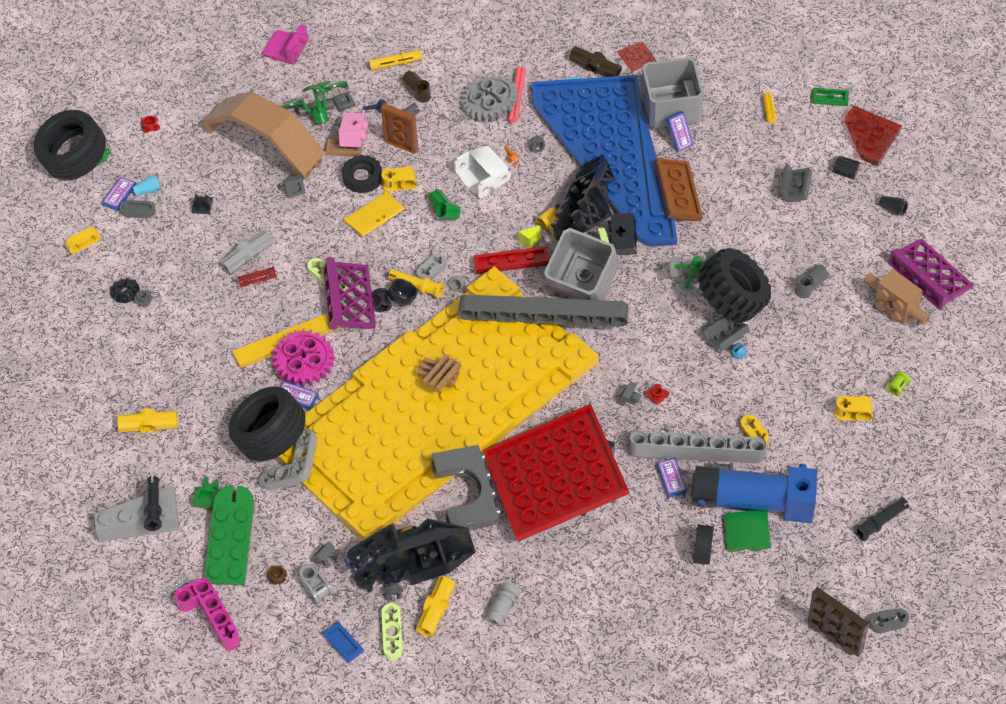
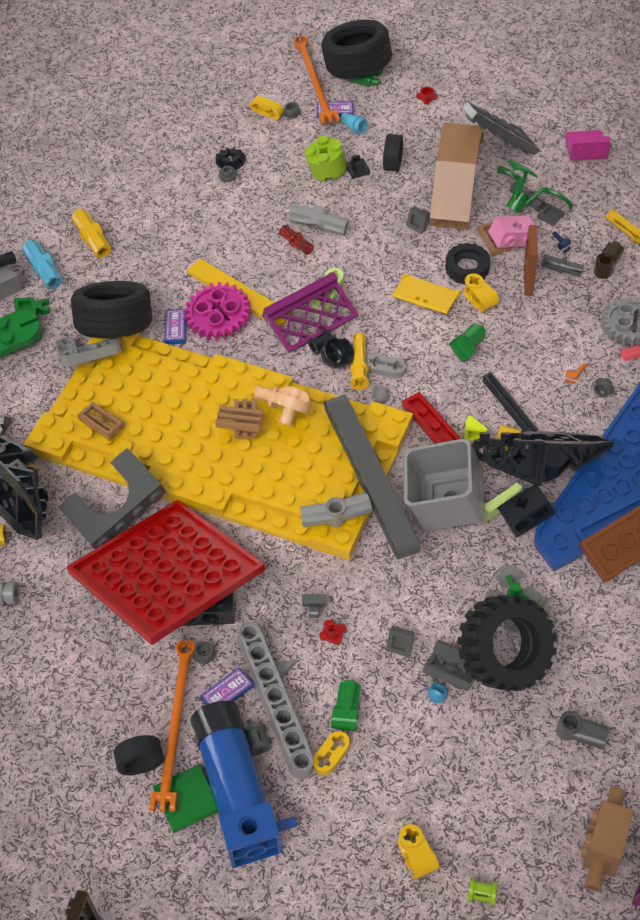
camera: 65 degrees right, 0 degrees up
(98, 220) = (291, 110): none -> dark grey plate
(130, 200) = (327, 113): none -> orange hinge
(137, 209) = (327, 129): dark grey tile -> none
(161, 468) = (42, 264): none -> medium azure piece
(183, 218) = (326, 158): none -> lime brick
(210, 170) = (393, 152): none -> black tyre
(252, 85) = (507, 132): none -> dark grey wing
(382, 474) = (96, 427): none -> medium nougat tile
(442, 332) = (289, 397): none -> light nougat pin
(482, 170) = (534, 356): white piece -> none
(515, 207) = (508, 403): none -> black axle
(563, 352) = (346, 508): none -> light grey piece
(632, 475) = (201, 647): none -> dark grey plate
(688, 354) = (400, 641): none -> dark grey tile
(727, 409) = (346, 709): none -> green piece
(745, 541) = (165, 795): none -> orange hinge

